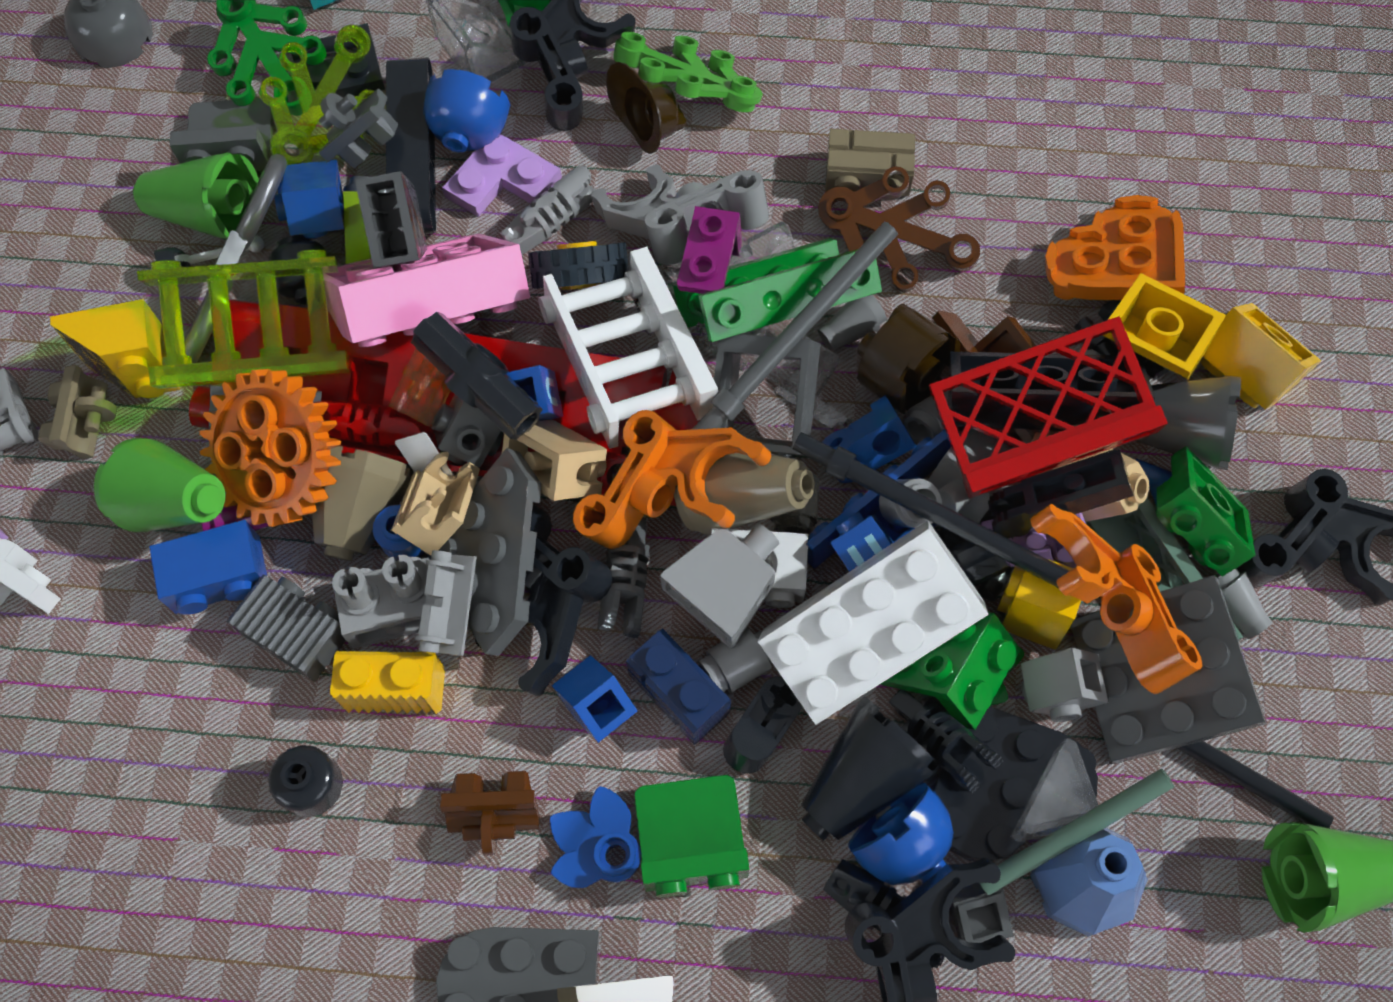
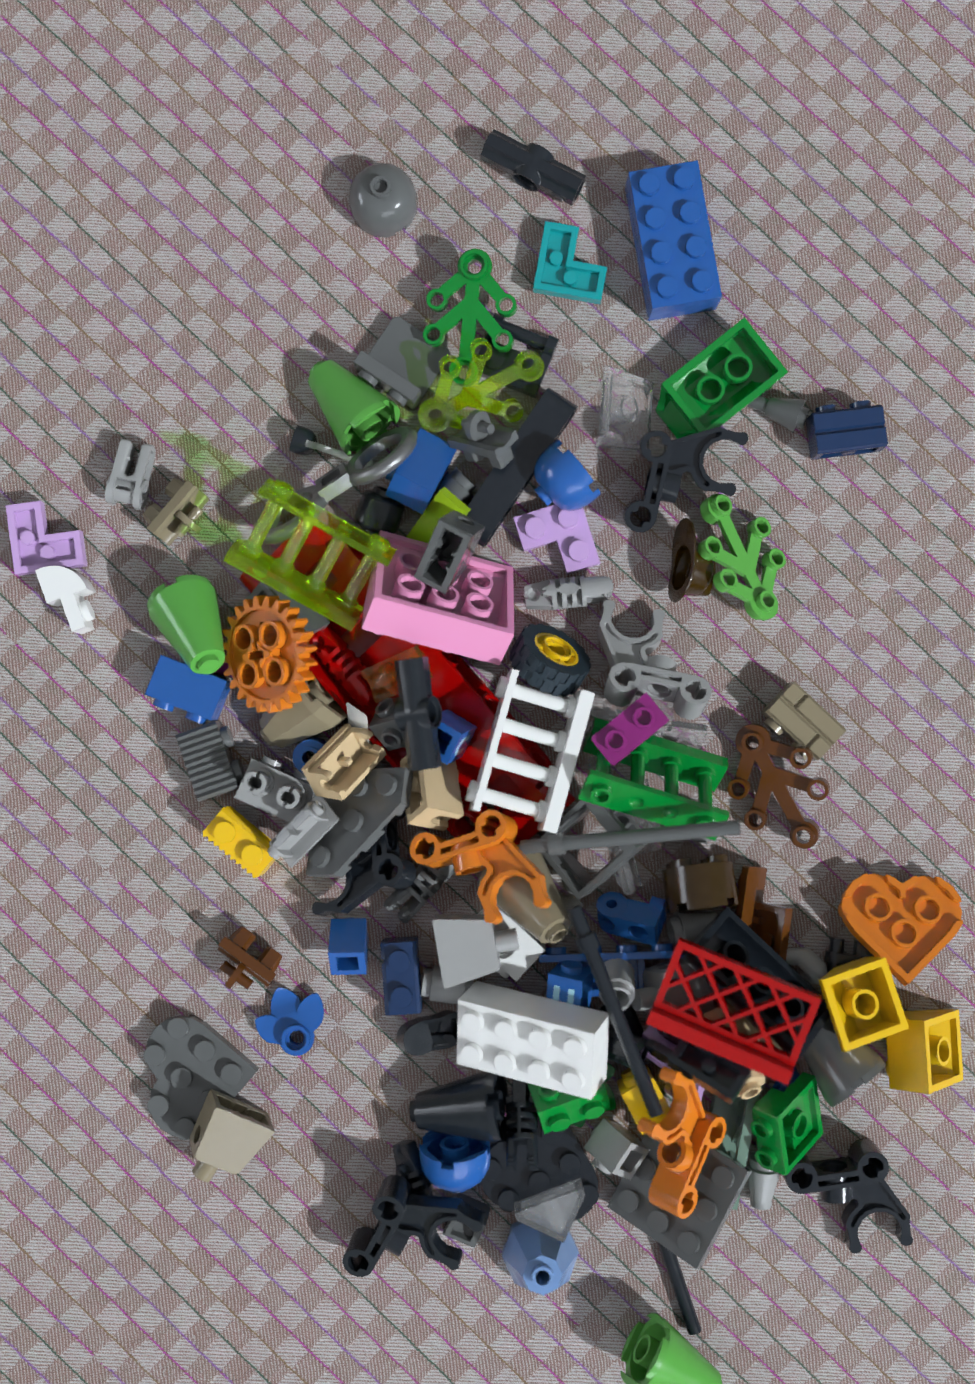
camera: 40 degrees right, 20 degrees up
(117, 344) = (229, 497): yellow slope -> none
(305, 781) = (169, 865): black head -> none
(690, 835) = (343, 1063): green bracket -> none
(1081, 829) = (547, 1242): sand green bar -> none

